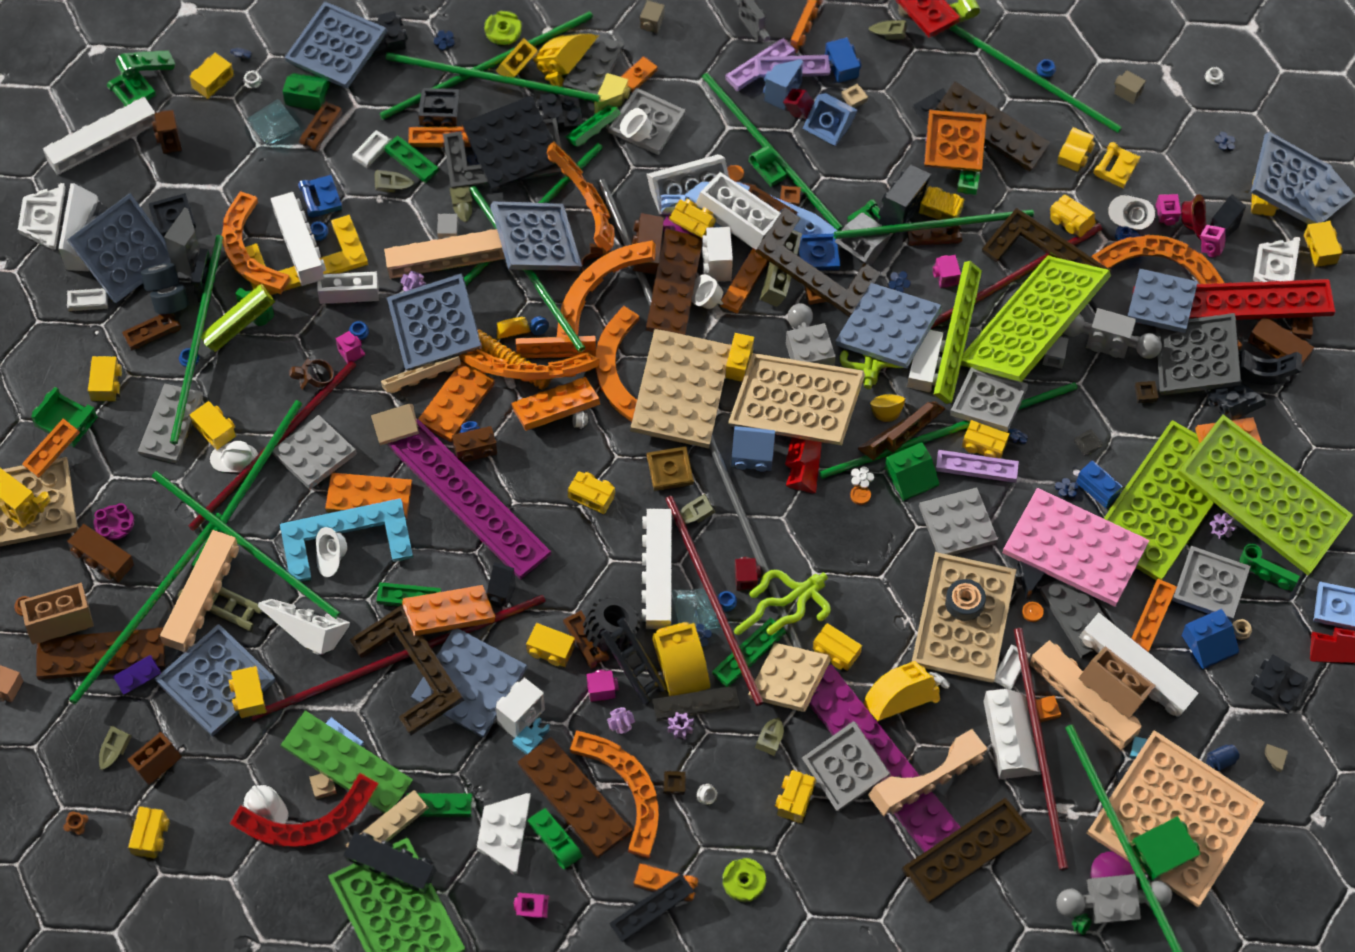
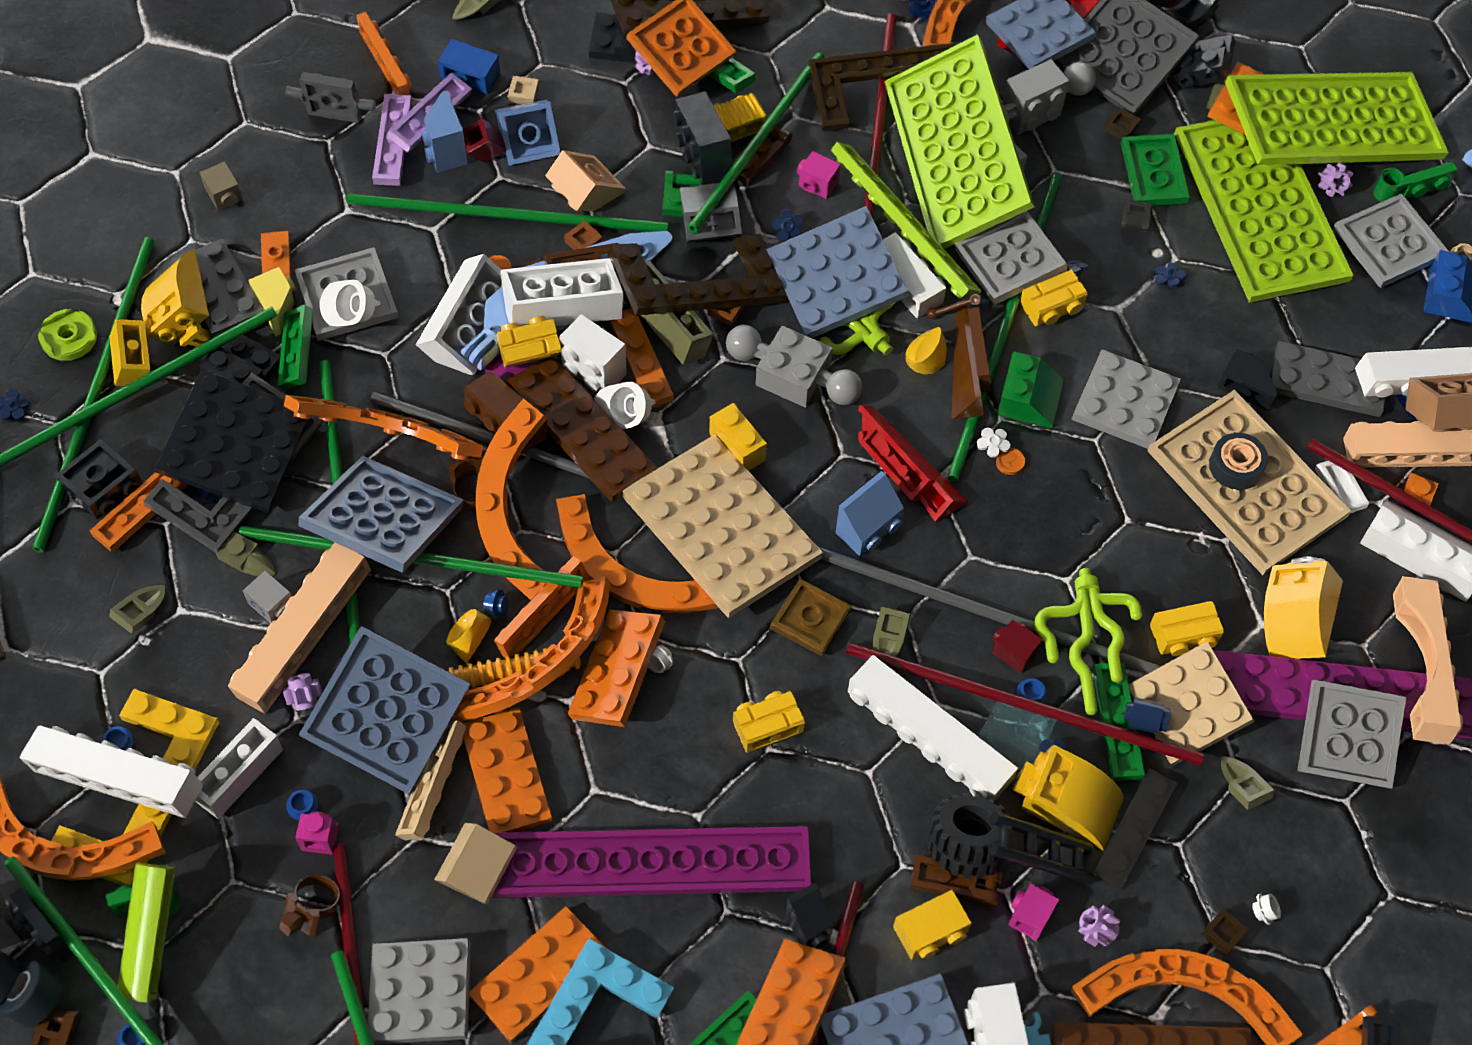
camera: 50 degrees left, 0 degrees up
(326, 194) = (75, 692): blue plate -> none
(371, 149) = (70, 594): white tile -> none
(411, 159) = (132, 562): green plate -> none
(468, 426) = (560, 786): blue plate -> none
(475, 444) = (588, 796): reddish brown brick -> none
(685, 723) = (1164, 869): lavender gear -> none
(744, 869) = (1421, 947): lime plate -> none
(759, 659) = (1147, 715): none -> dark blue brick
(766, 166) = (523, 230): green plate -> none
(796, 796) = (1343, 816): yellow brick -> none
(797, 398) = (853, 422): tan plate -> none
(820, 251) = (682, 261): blue plate -> none
(826, 168) = (584, 181): none -> light nougat slope
(938, 401) = (974, 299): none -> reddish brown hinge
(977, 466) = (1077, 328): lavender plate -> none
(1032, 611) = (1289, 416): orange piece -> none
(1072, 216) = (862, 25): yellow brick -> none
(1076, 546) = (1257, 316): bright pink plate -> none
(1099, 484) = (1196, 242): blue brick -> none
(1131, 430) = (1155, 169): none -> green plate
(1153, 614) = (1385, 312): orange plate -> none

